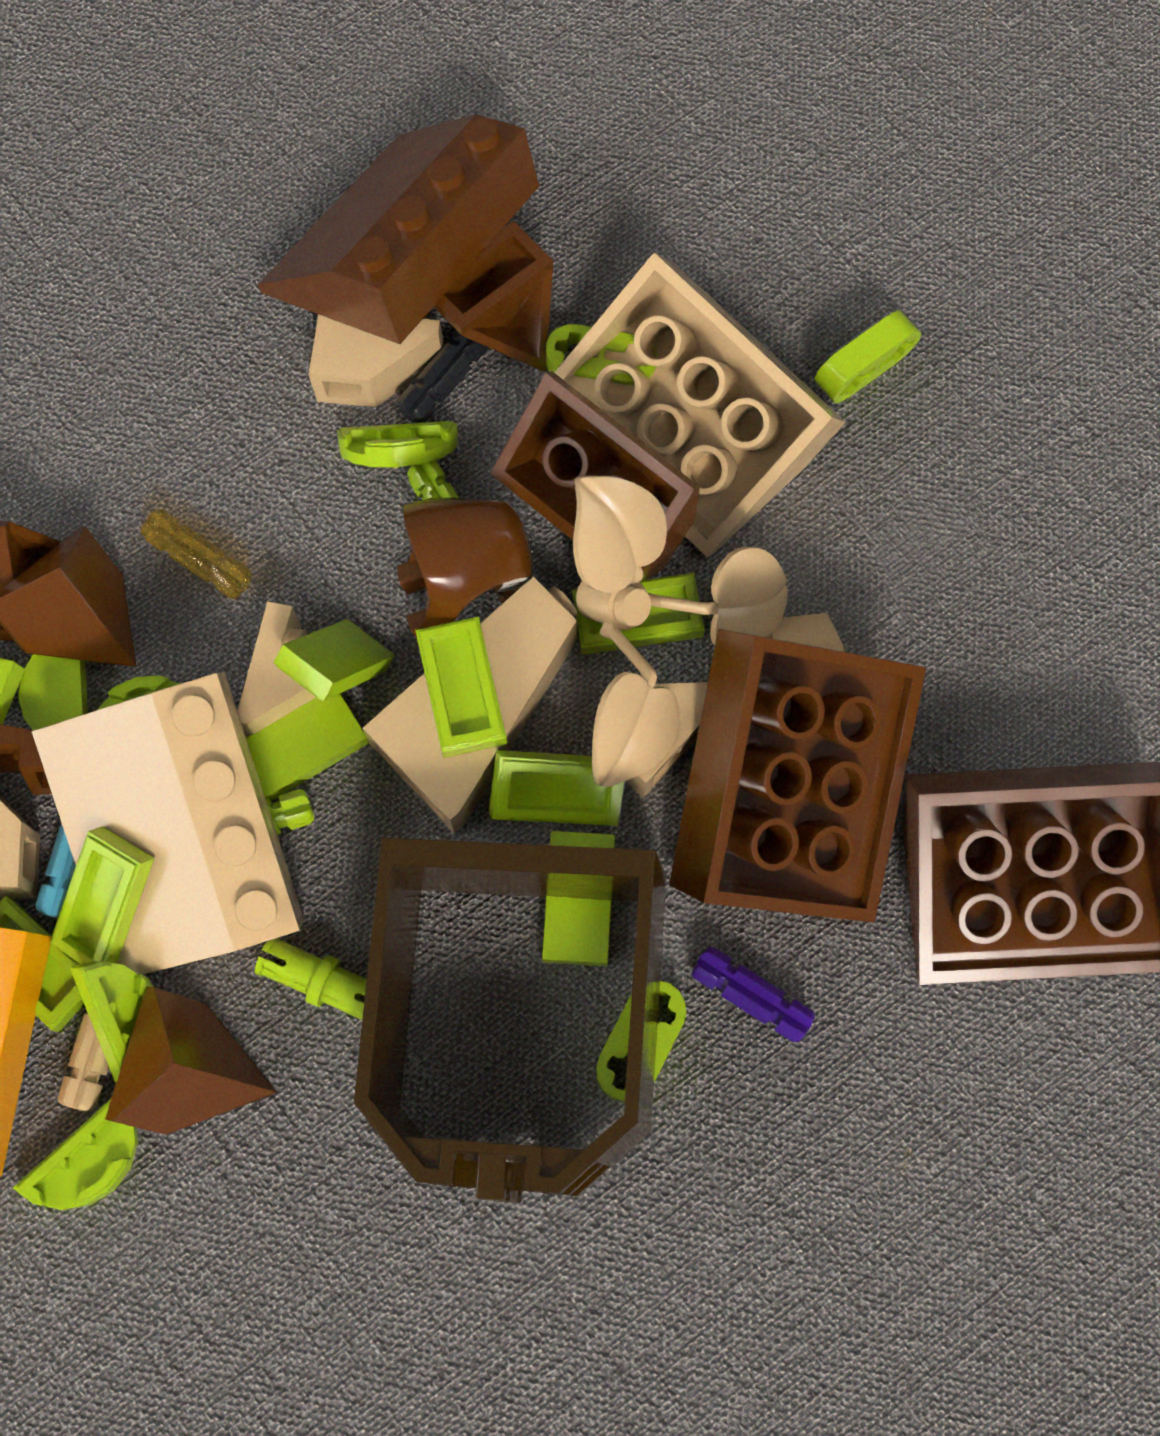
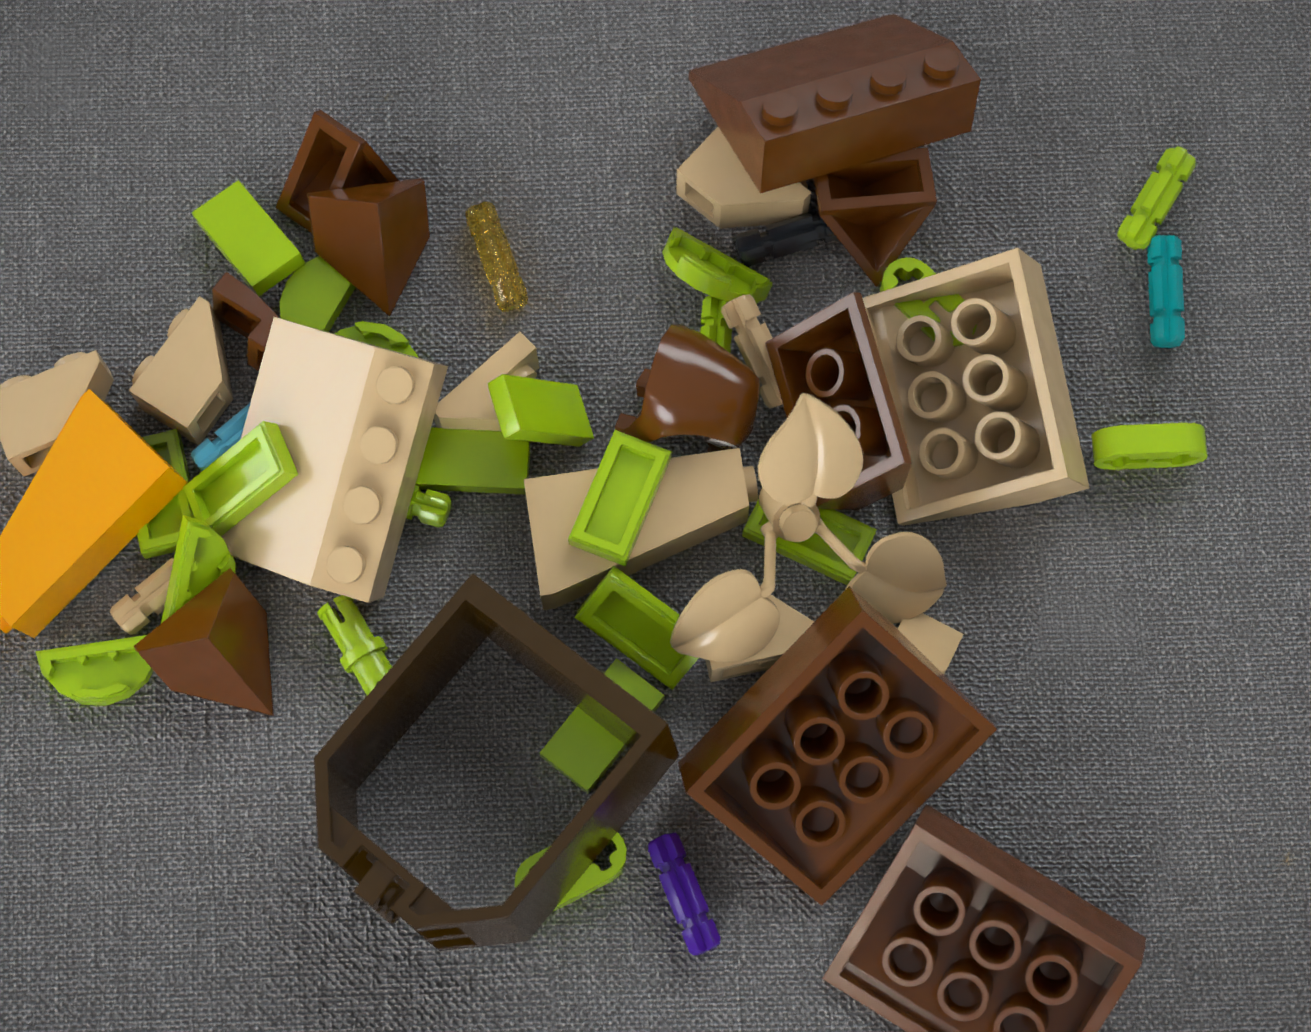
camera: 35 degrees right, 0 degrees up
(478, 482) = (751, 340): none -> tan axle
(726, 152) = (1156, 198): none -> lime axle
(788, 223) = (1166, 291): none -> teal axle

